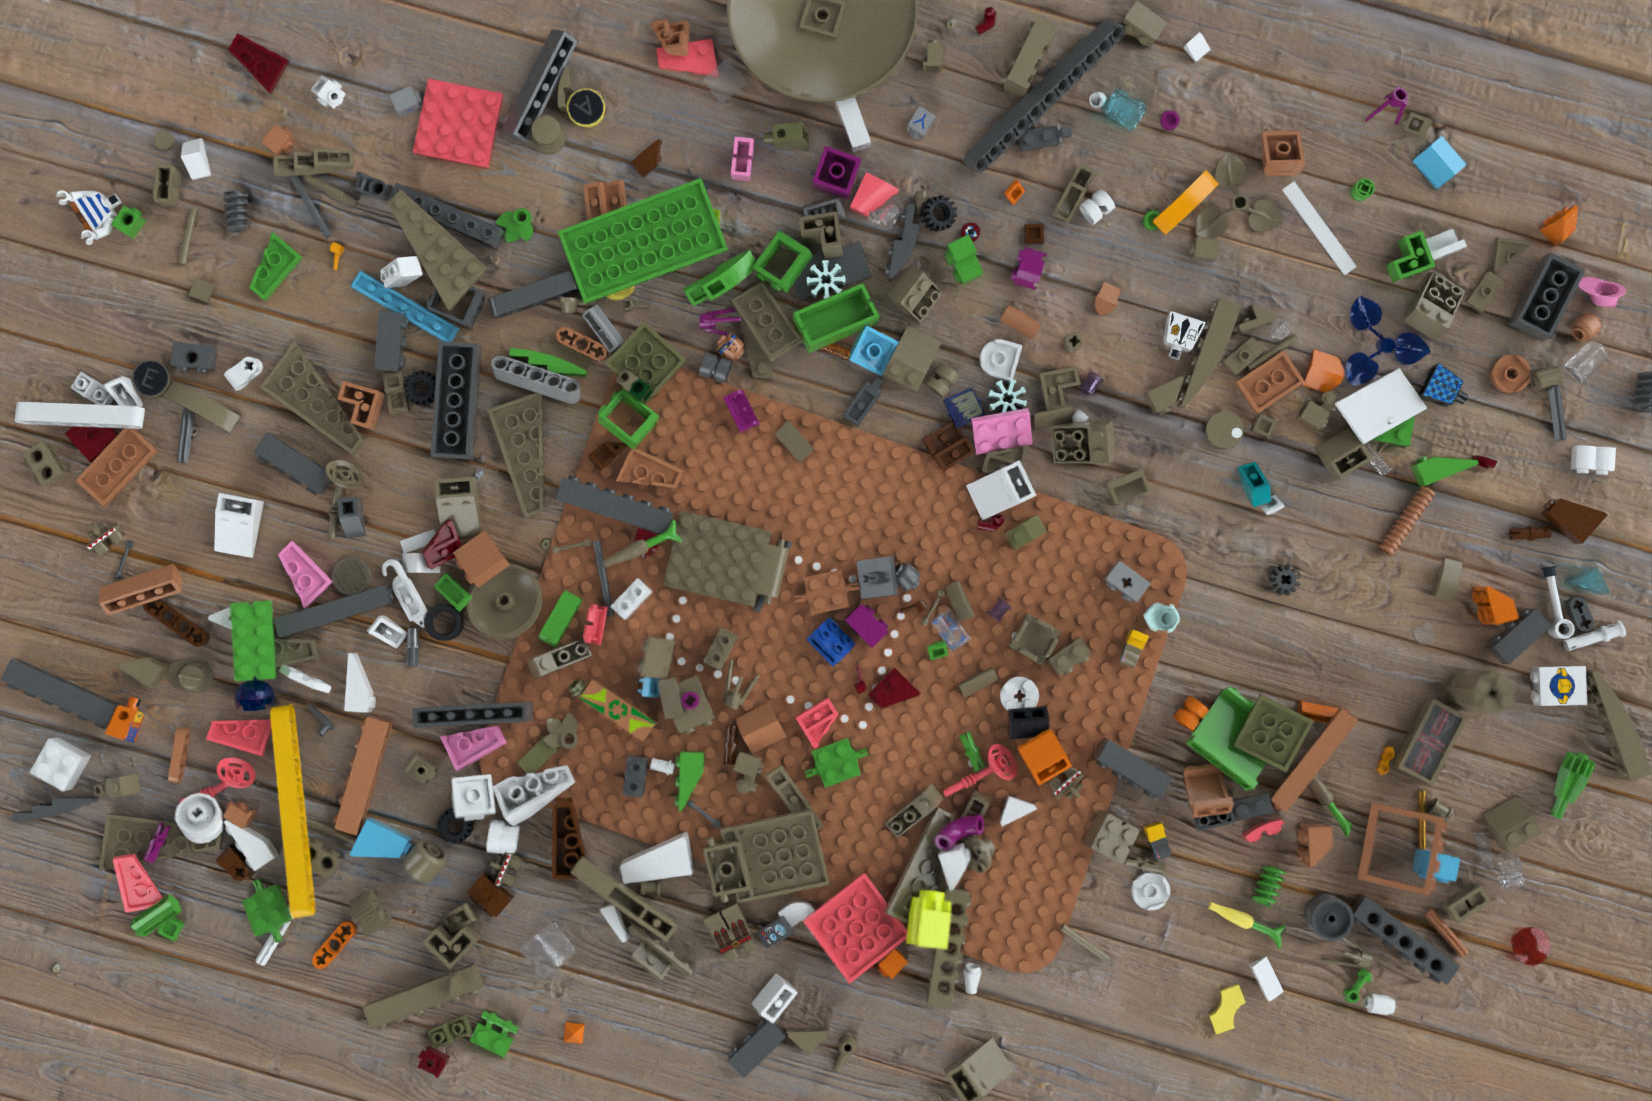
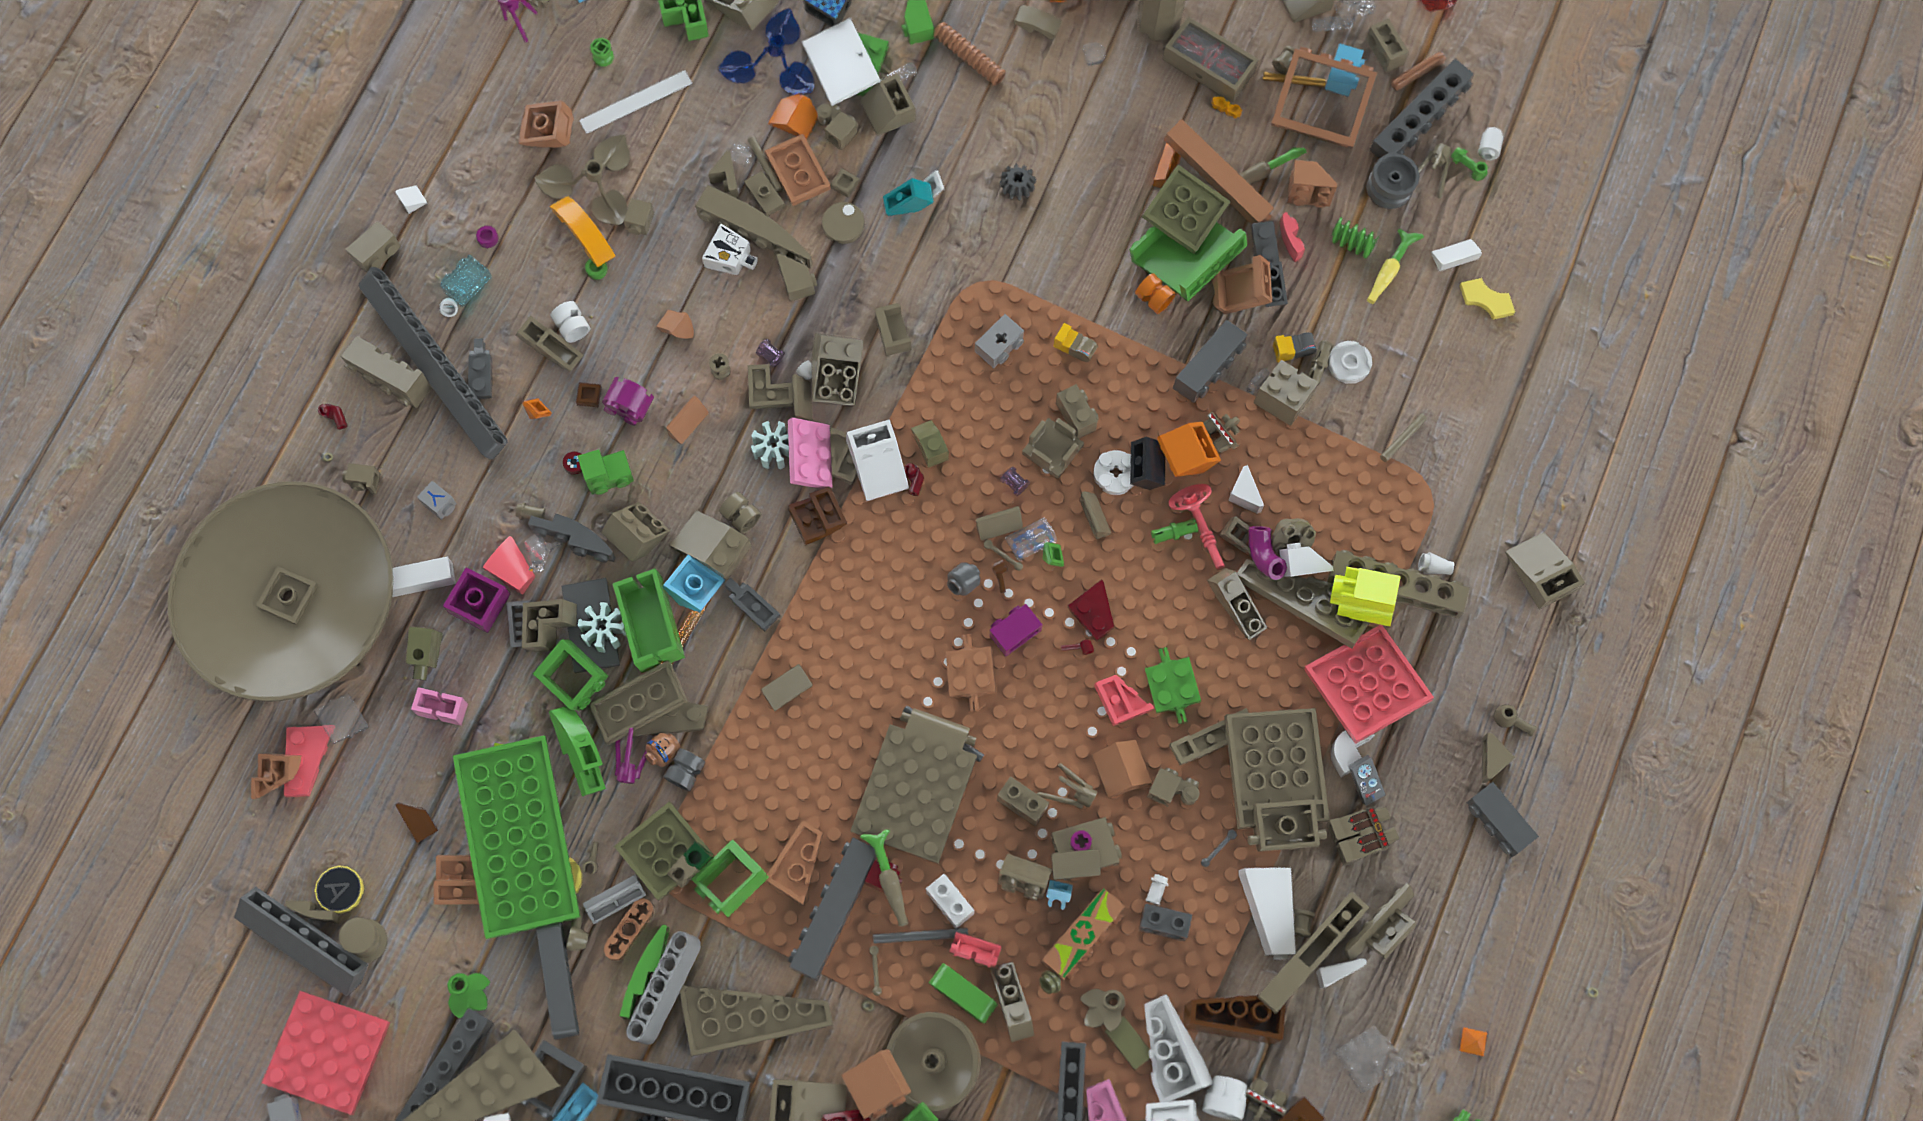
camera: 80 degrees left, 15 degrees down
(606, 453) = (768, 914): reddish brown slope -> none
(691, 769) = (1168, 856): bright green slope -> none
(730, 744) = (1139, 806): reddish brown pin -> none
(741, 410) = (741, 745): magenta hinge -> none
(774, 998) = (1445, 790): white brick -> none
(831, 641) = (1030, 673): blue bracket -> none
(877, 577) = (960, 610): dark grey tile -> none
(892, 963) = (1414, 650): orange brick -> none
(948, 212) = (543, 483): black tyre -> none
(964, 407) = (776, 493): piece -> none
(1000, 359) = (726, 448): white tile -> none
(1162, 617) = (1045, 308): light aqua hair -> none

